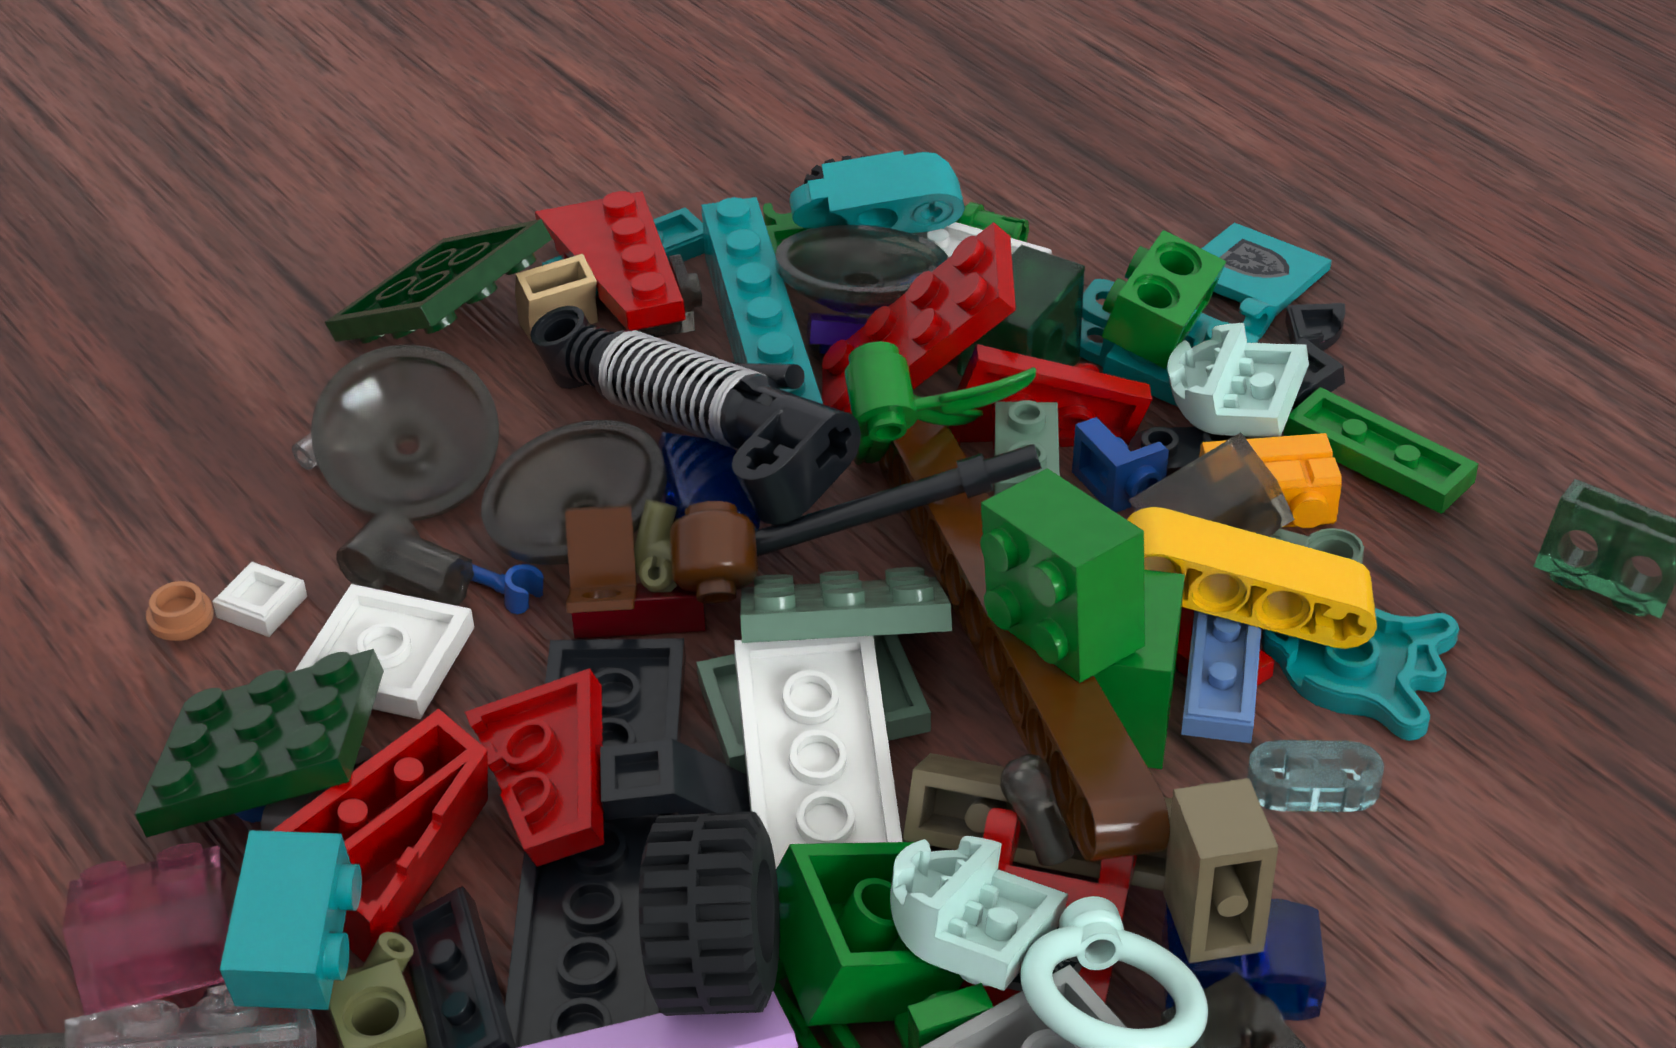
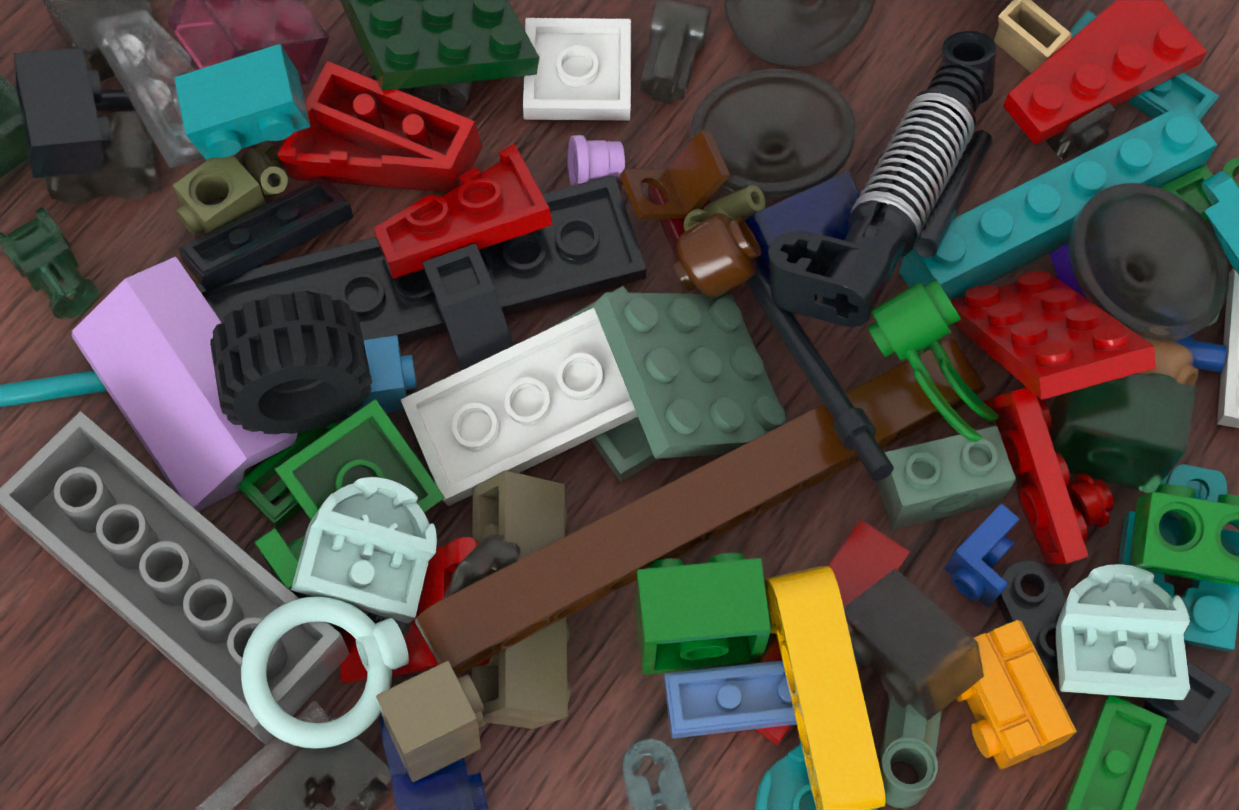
camera: 70 degrees right, 25 degrees up
(515, 584) = (683, 124): blue hand -> none
(516, 660) = (594, 160): none -> lavender piece
(1064, 574) = (672, 516): green brick -> none

